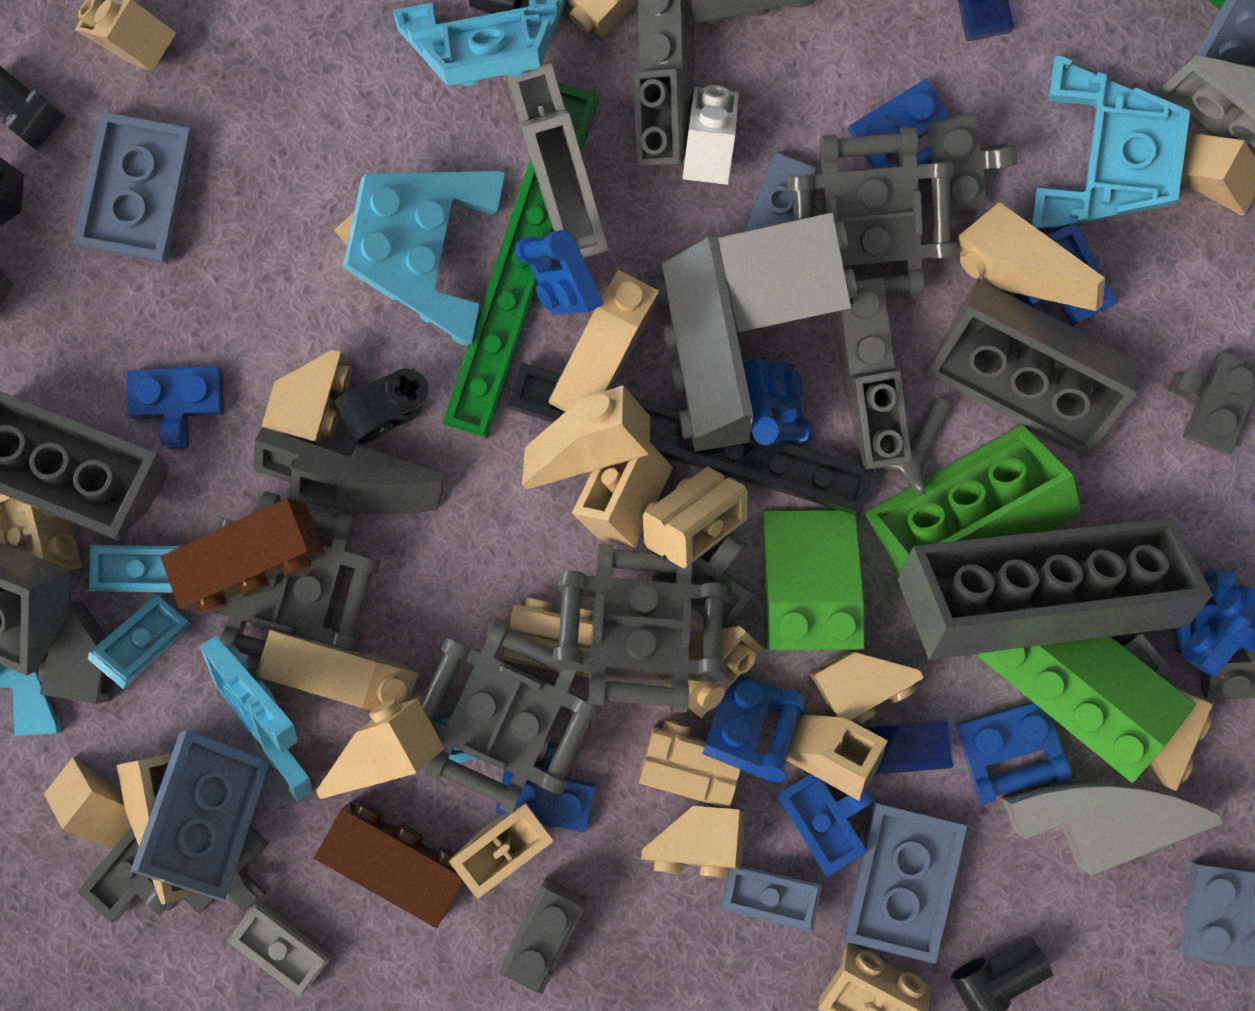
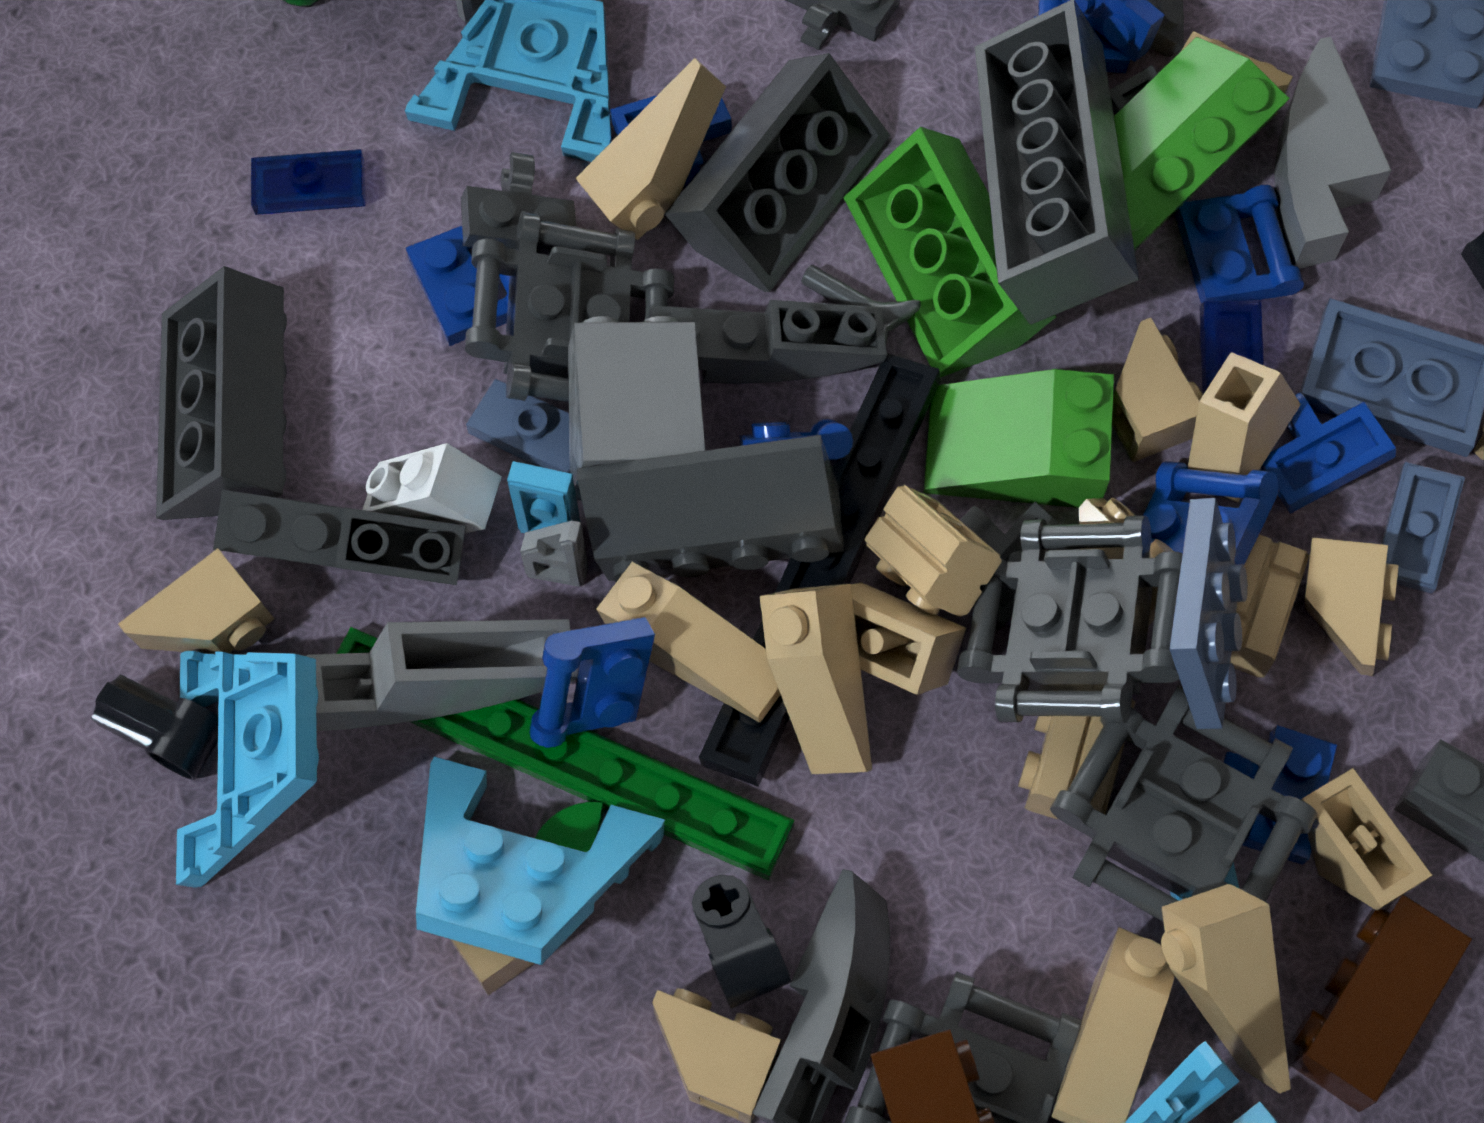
camera: 85 degrees left, 20 degrees down
(458, 278) = (574, 826): none -> green tile
(644, 724) = (1206, 615): none -> sand blue plate
(666, 234) = (556, 554): none -> light grey tile
(706, 217) = (541, 496): none -> medium azure plate

